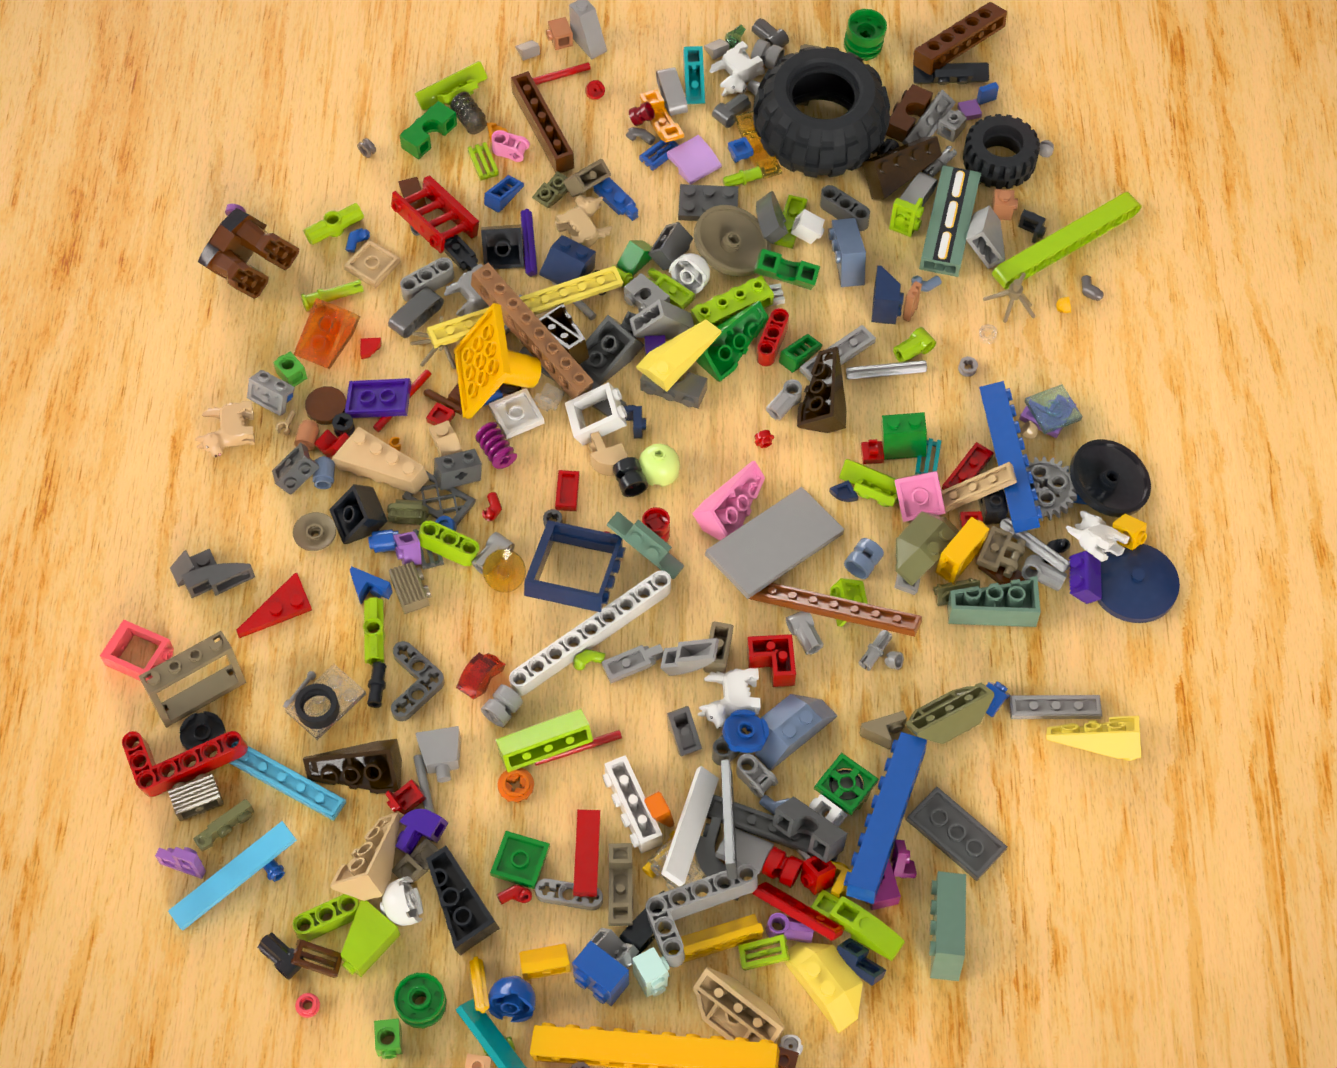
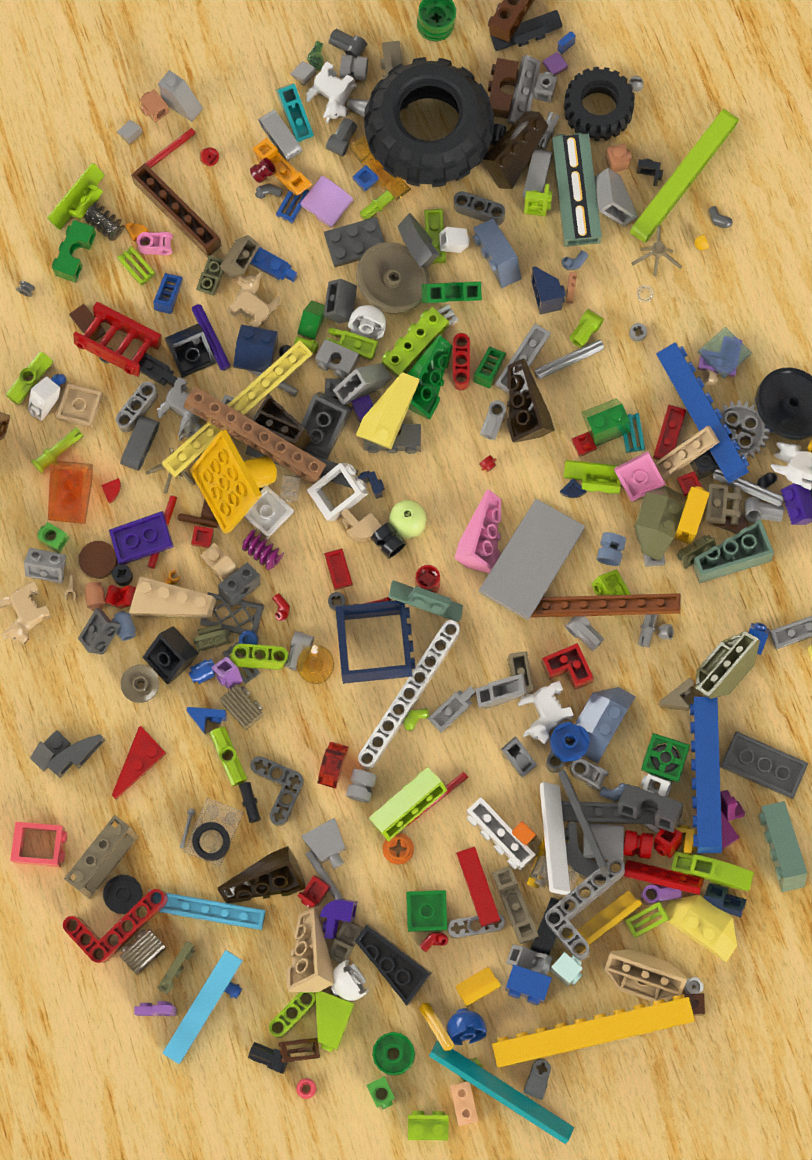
camera: 15 degrees left, 15 degrees up
(338, 242) = (43, 398): none -> white slope

